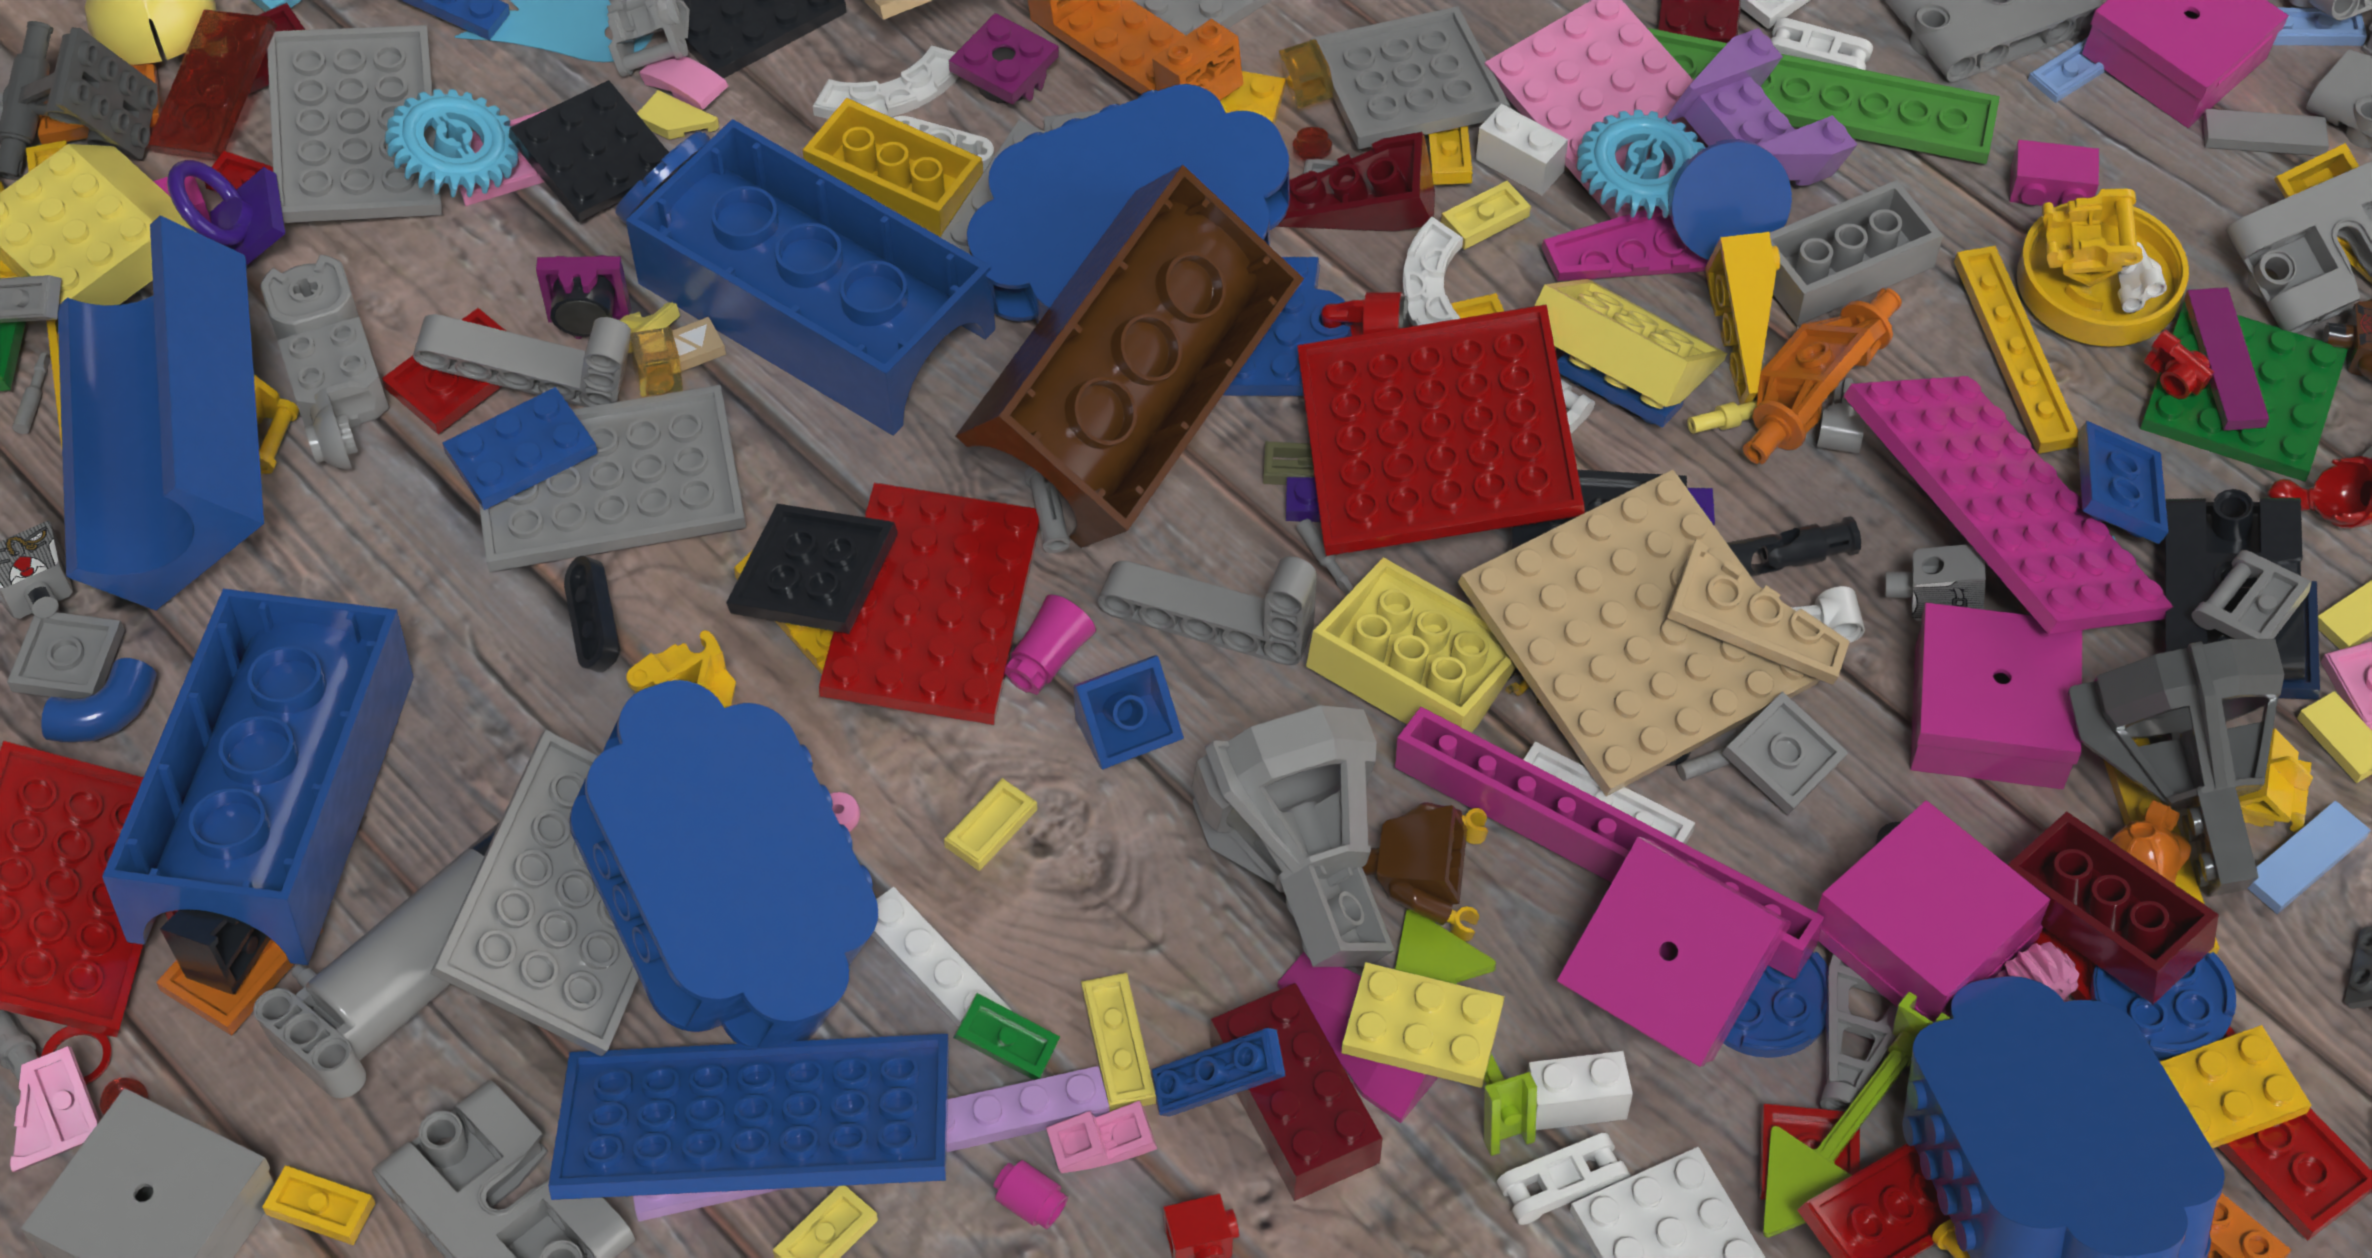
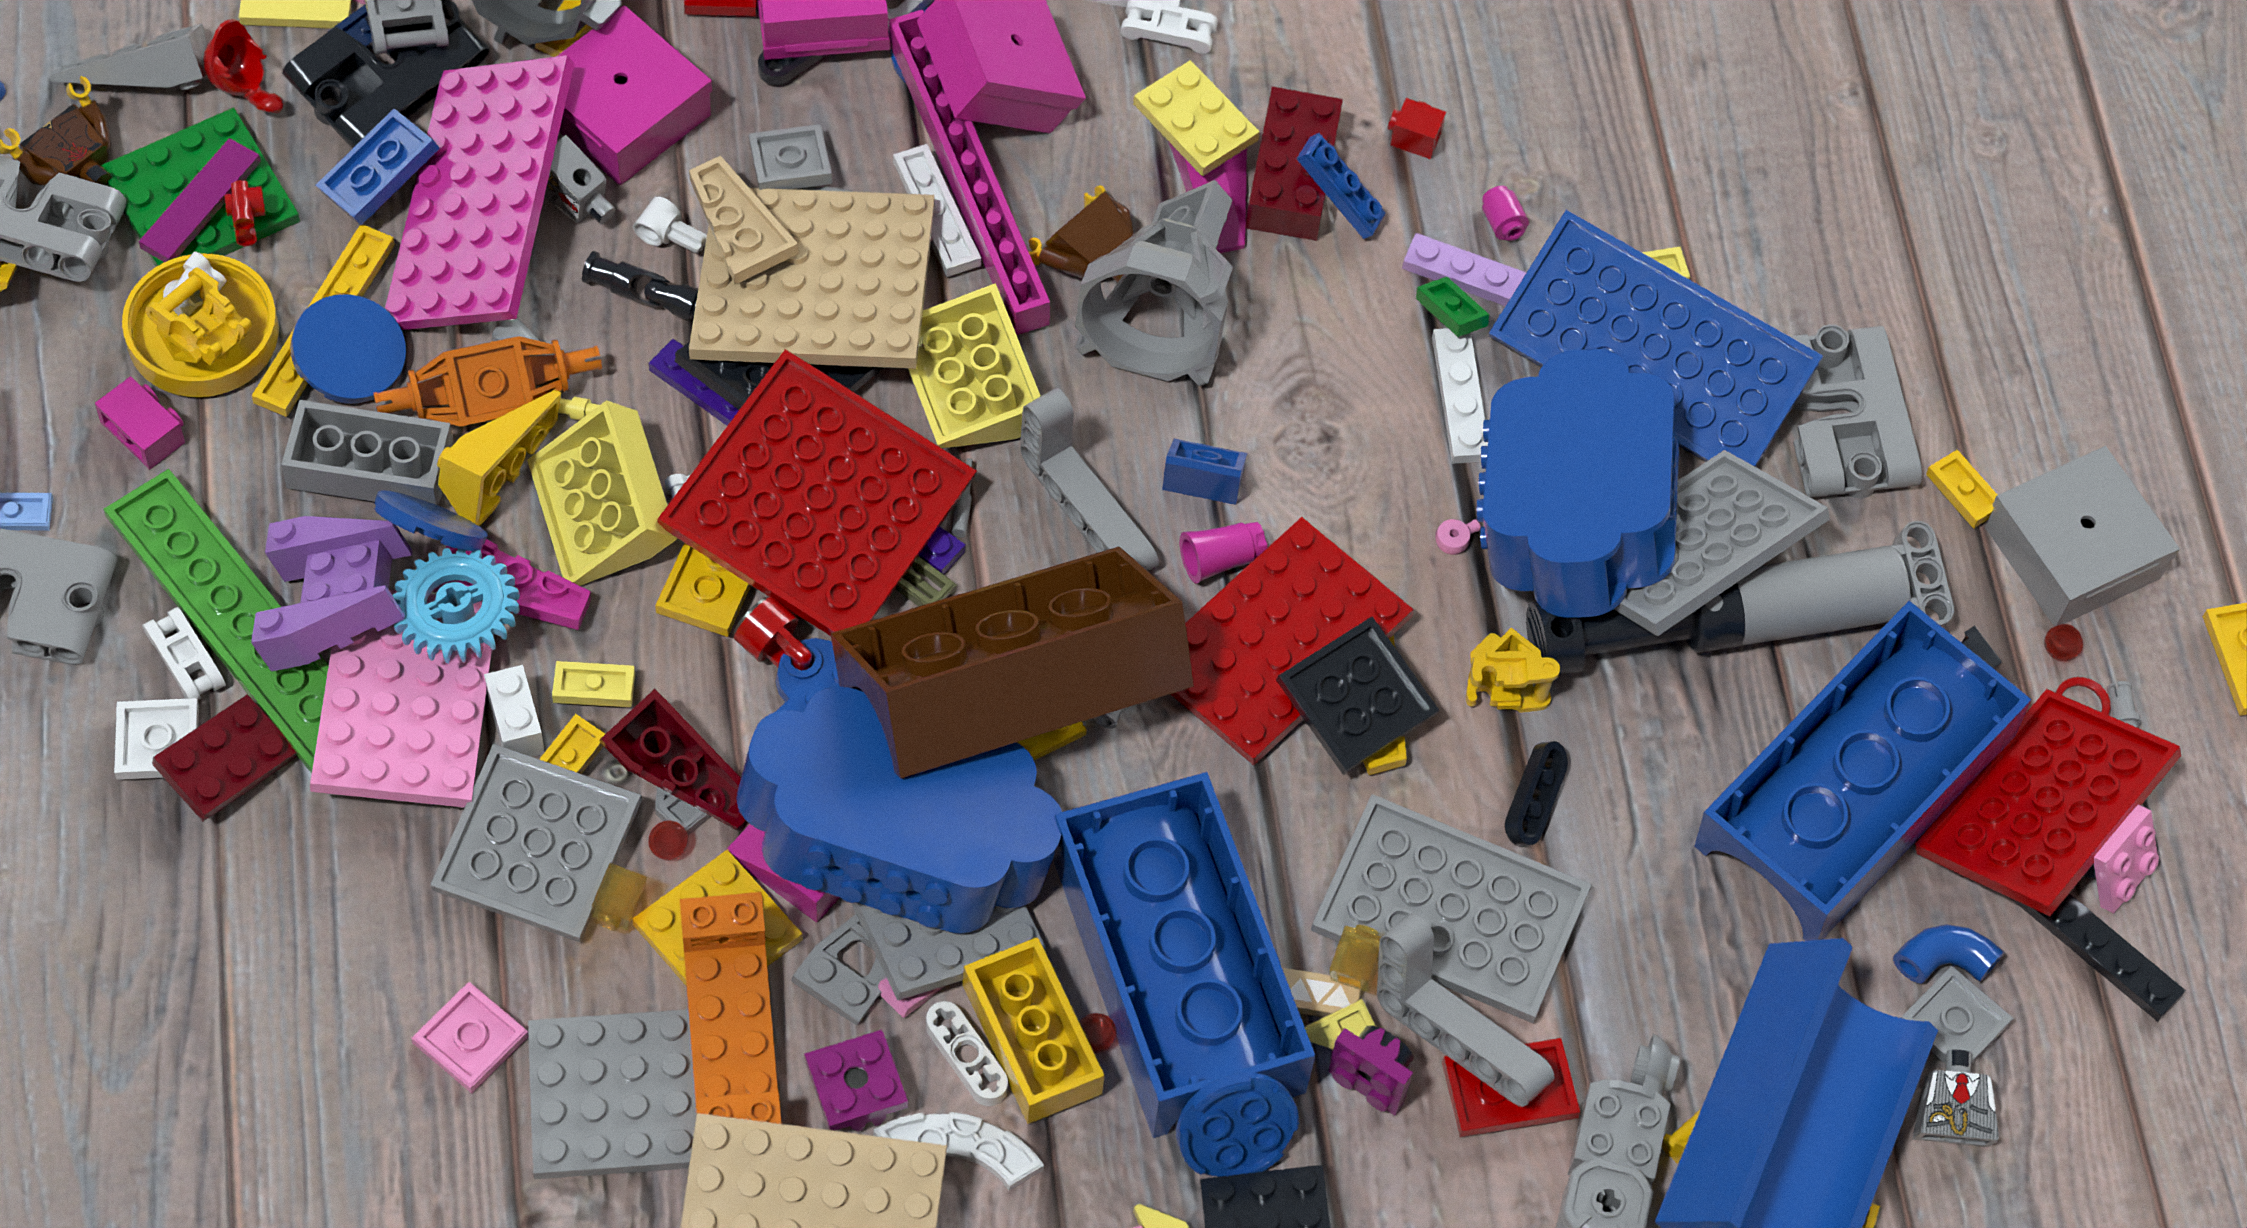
camera: 150 degrees left, 5 degrees up
(52, 1109) = (2117, 653): bright pink wing -> none
(520, 448) = (1509, 961): blue plate -> none
(990, 824) = (1353, 463): light yellow tile -> none
(1103, 1140) = (1442, 224): bright pink slope -> none
(1118, 1041) = (1376, 274): light yellow tile -> none
(1425, 273) = (707, 641): white tile -> none
(1441, 955) = (1137, 184): lime piece -> none
(1581, 1090) = (1119, 55): white brick -> none
(1965, 326) = (348, 348): none -> blue tile

